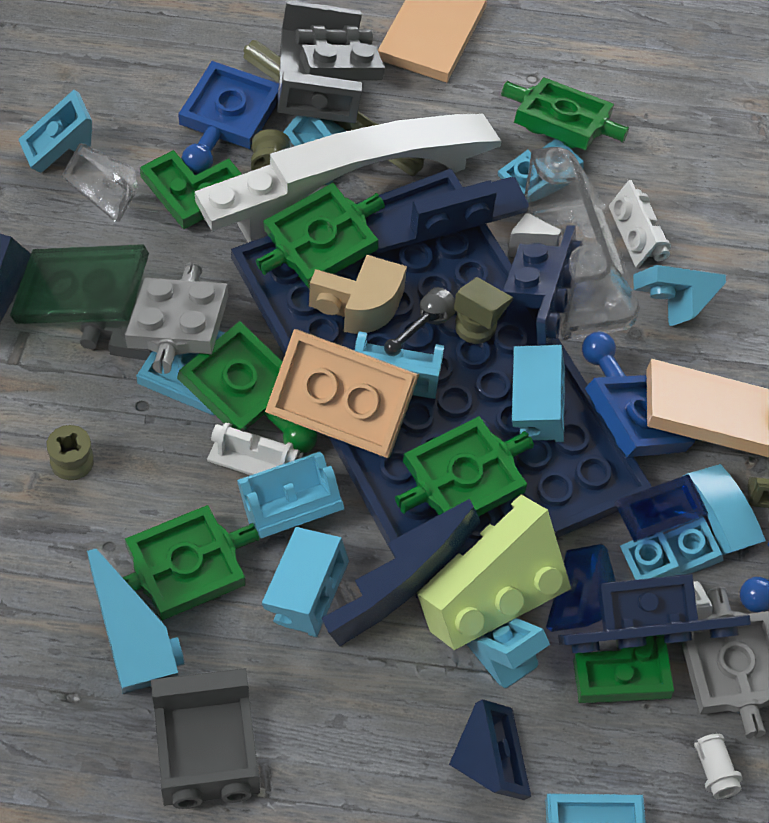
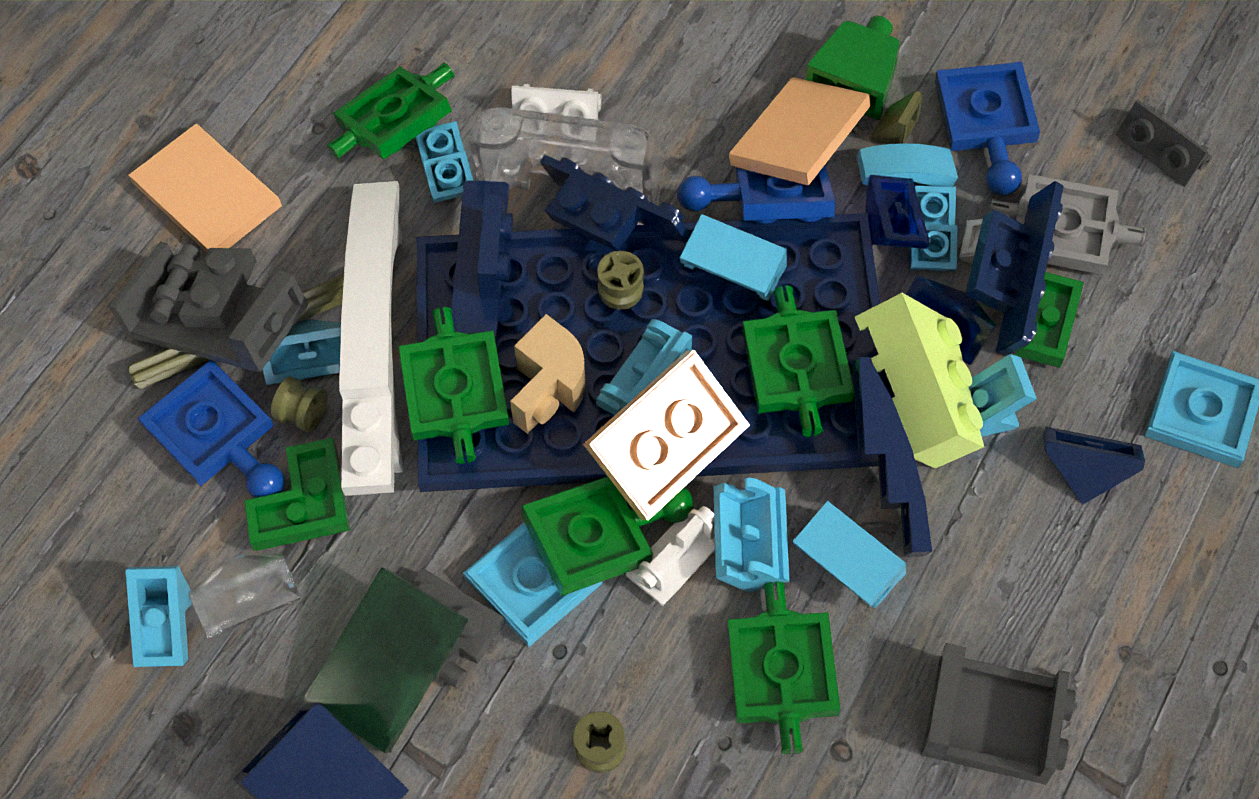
camera: 60 degrees left, 5 degrees up
(134, 632) = (871, 743): medium azure slope -> none
(177, 316) = (489, 566): light grey plate -> none
(435, 308) = (595, 313): hinge -> none
(481, 302) = (622, 262): olive slope -> none
(532, 230) = (531, 199): white slope -> none
(684, 288) = (662, 98): medium azure slope -> none
(719, 770) = (1163, 280): white pin -> none

